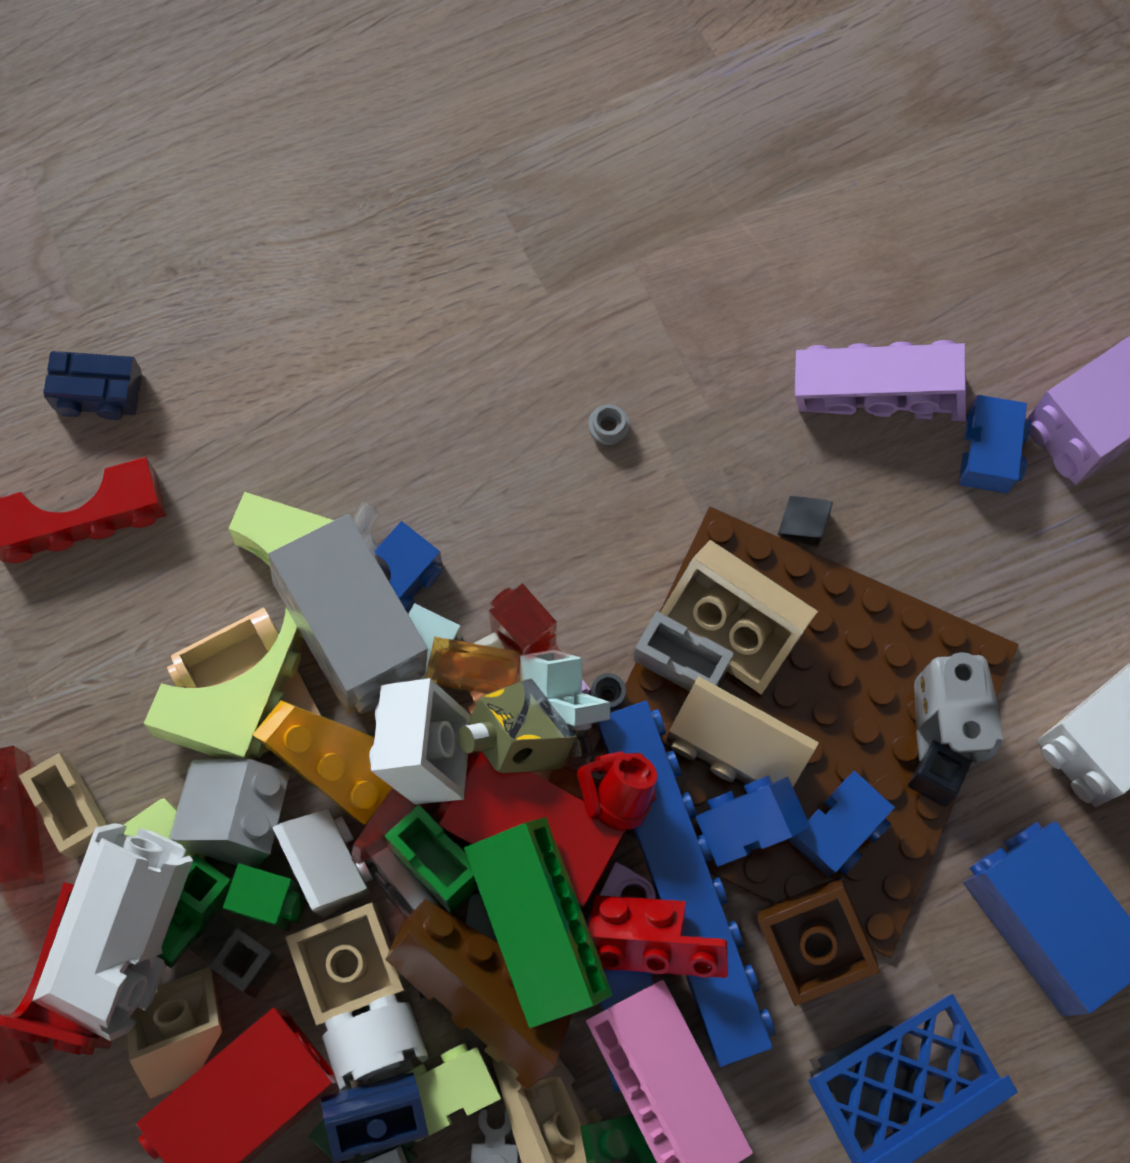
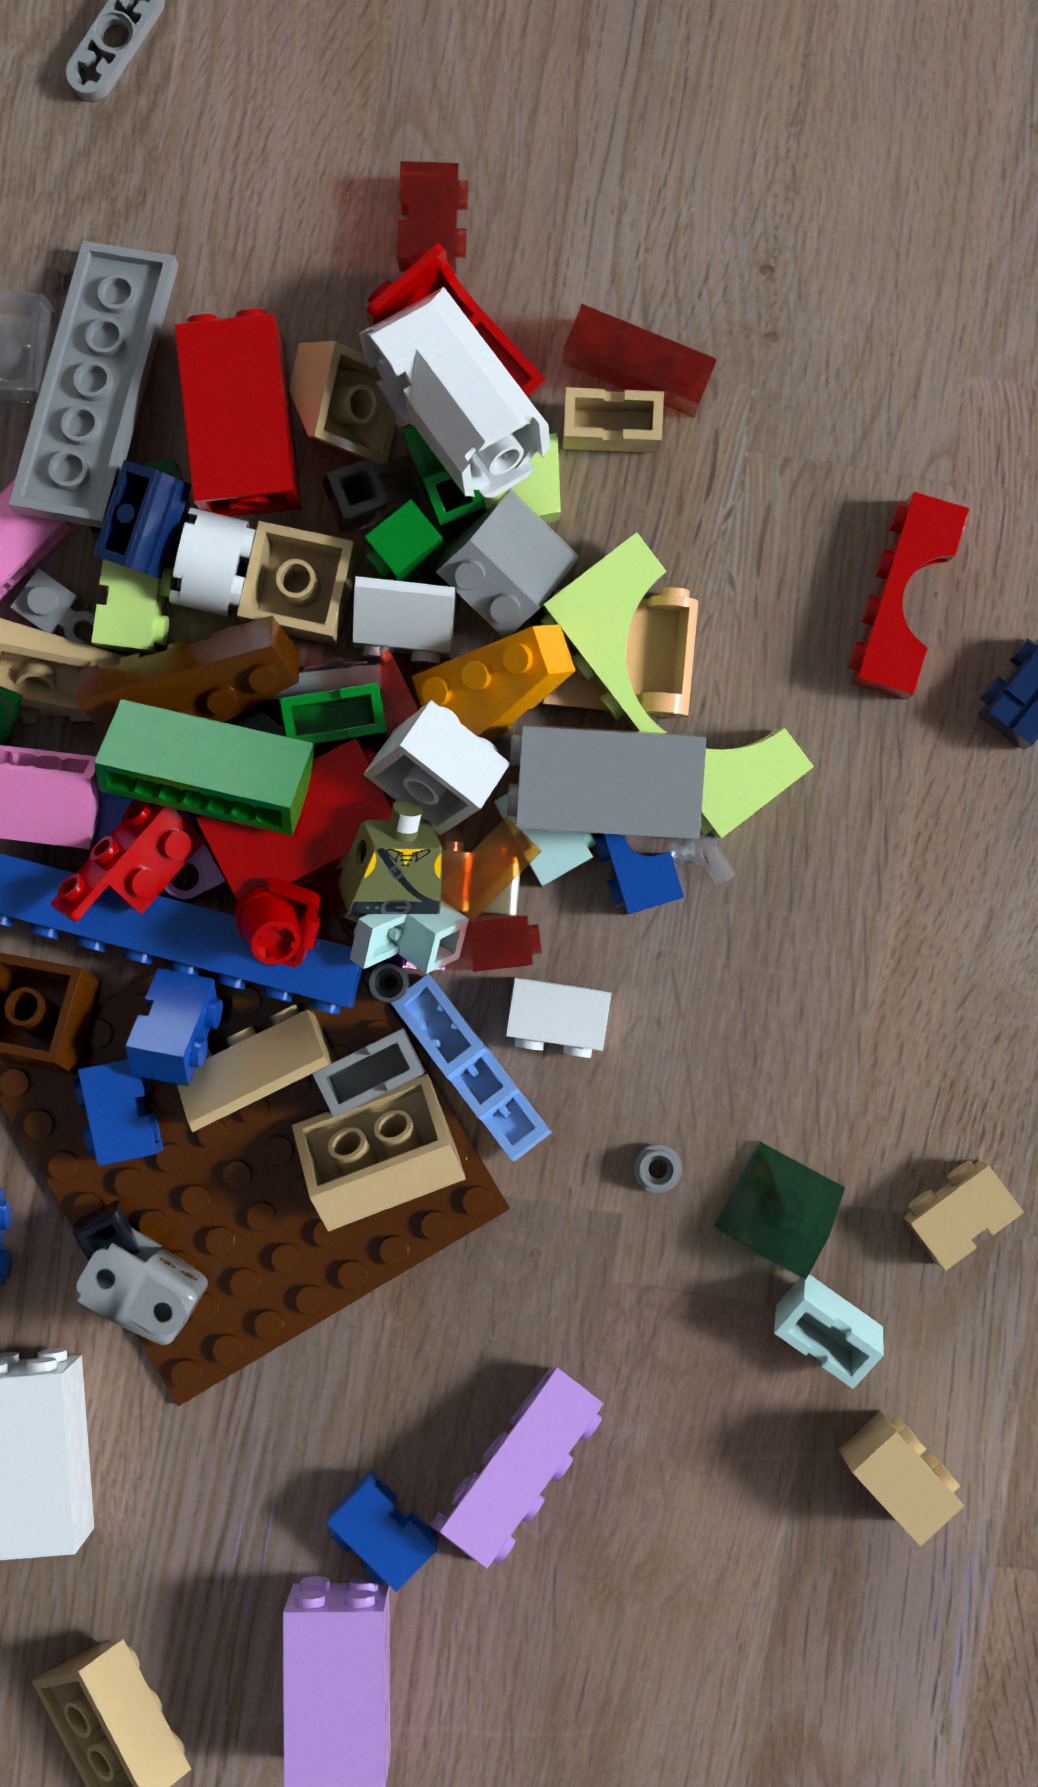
camera: 130 degrees right, 15 degrees up
(498, 210) = (960, 1211): none -> tan brick
(547, 557) = (558, 1016): none -> white brick
(579, 323) = (781, 1210): none -> clear green slope
(628, 595) = (471, 1068): none -> light blue slope
(637, 240) = (829, 1329): none -> light aqua brick
(699, 134) = (910, 1487): none -> tan brick
(805, 519) = (433, 1291): black slope -> none

